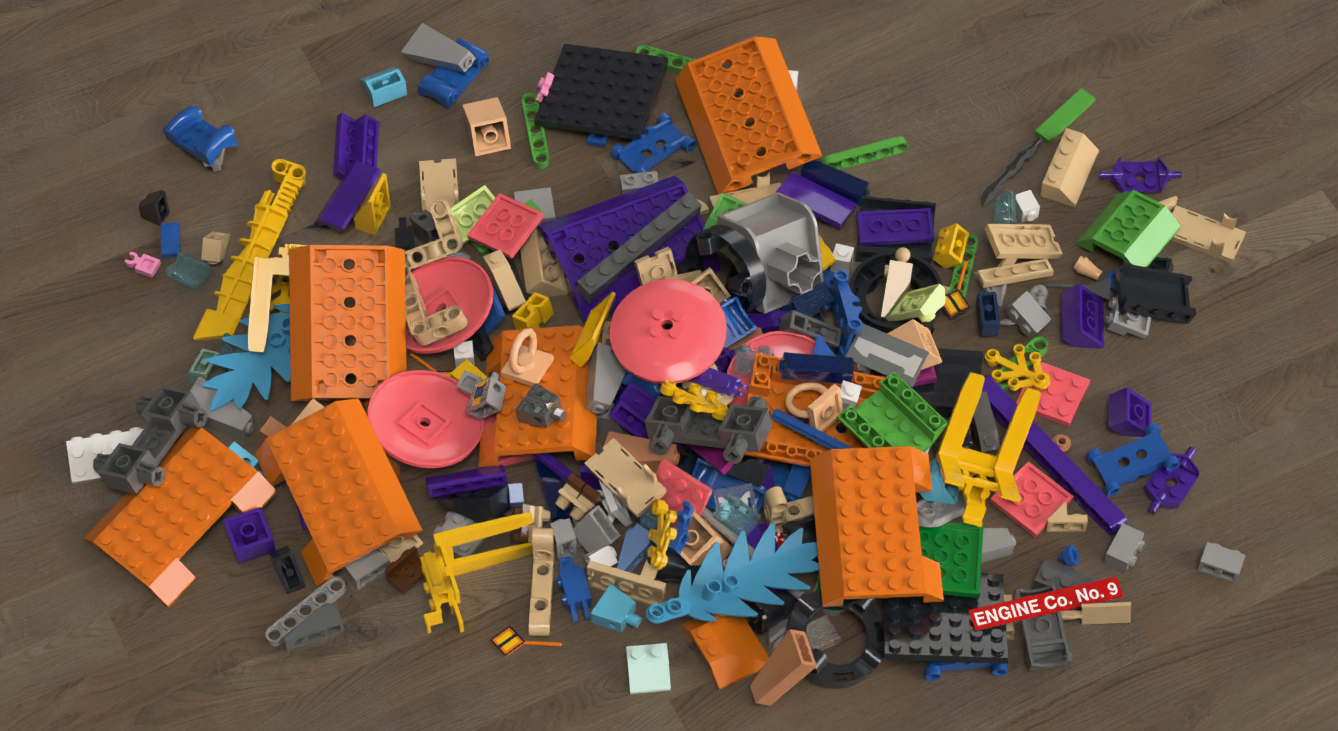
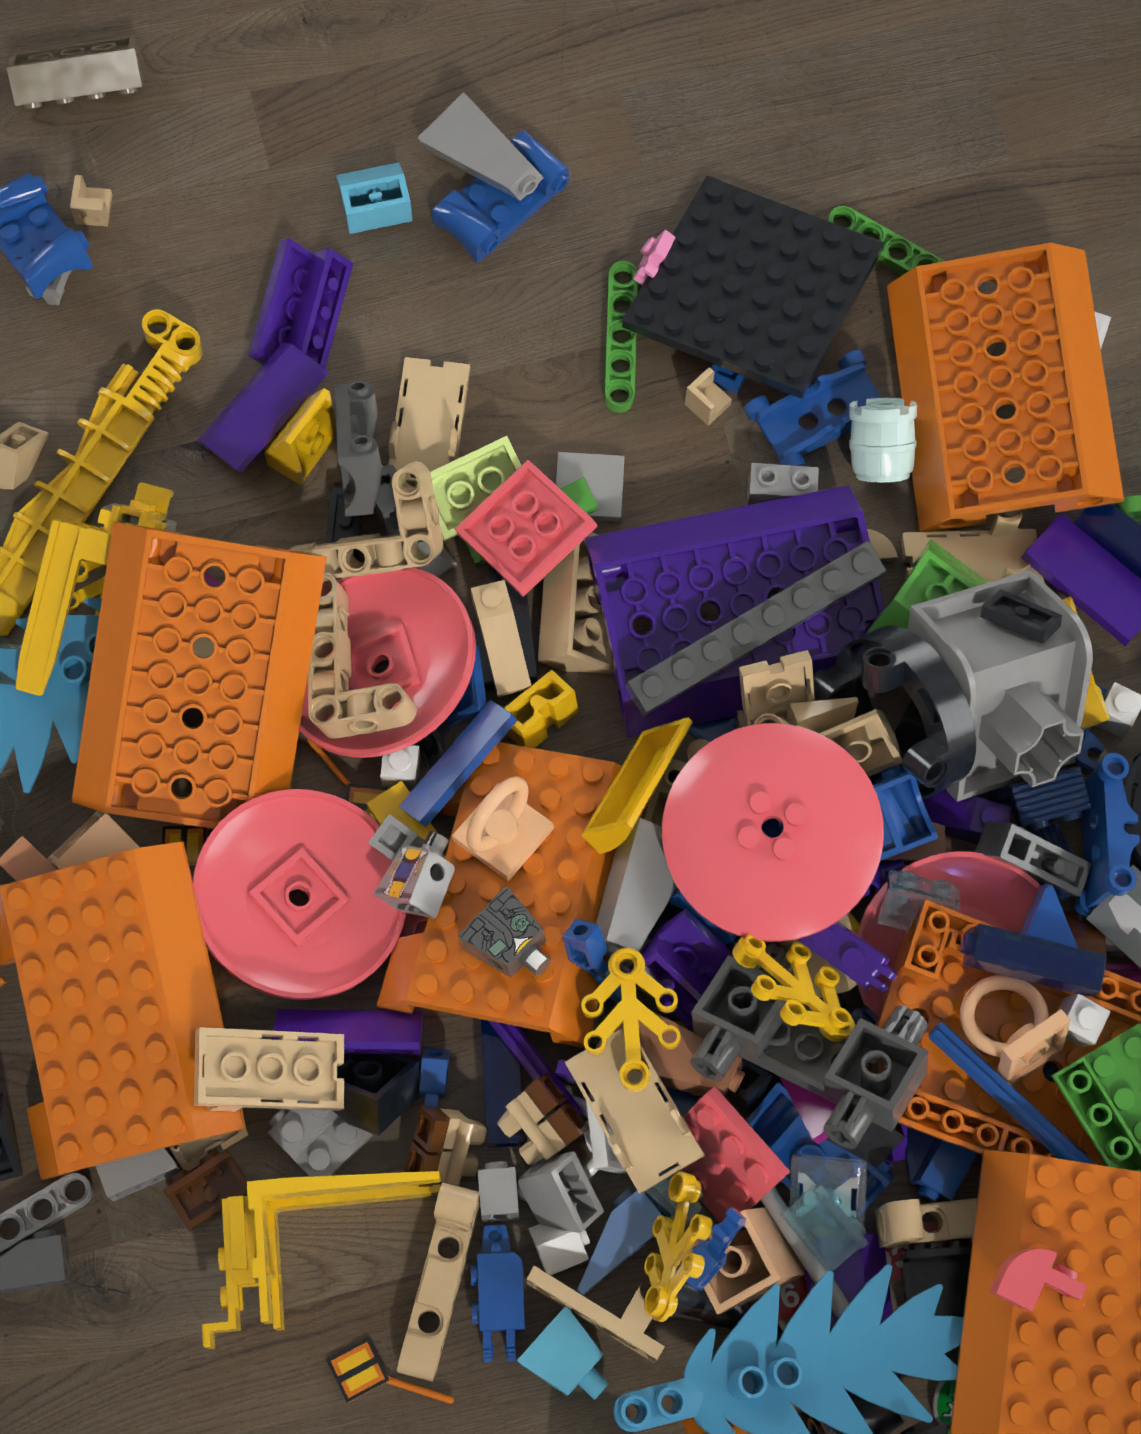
camera: 10 degrees right, 15 degrees up
(202, 52) = (75, 72): none -> dark tan slope
(226, 117) = (89, 204): none -> tan panel
(407, 202) = (356, 447): none -> dark grey piece
(429, 492) = (241, 1070): none -> tan piece
(487, 126) = (537, 313): light nougat slope -> none
(495, 342) = (458, 763): none -> blue tile
(584, 406) = (586, 948): none -> blue piece
(588, 152) = (706, 398): none -> tan panel
(613, 430) = (629, 1011): none -> yellow plant
(688, 151) = (882, 439): none -> light aqua piece
(775, 210) = (1021, 616): none -> black plate
(841, 496) = (1027, 1272): none -> coral brick

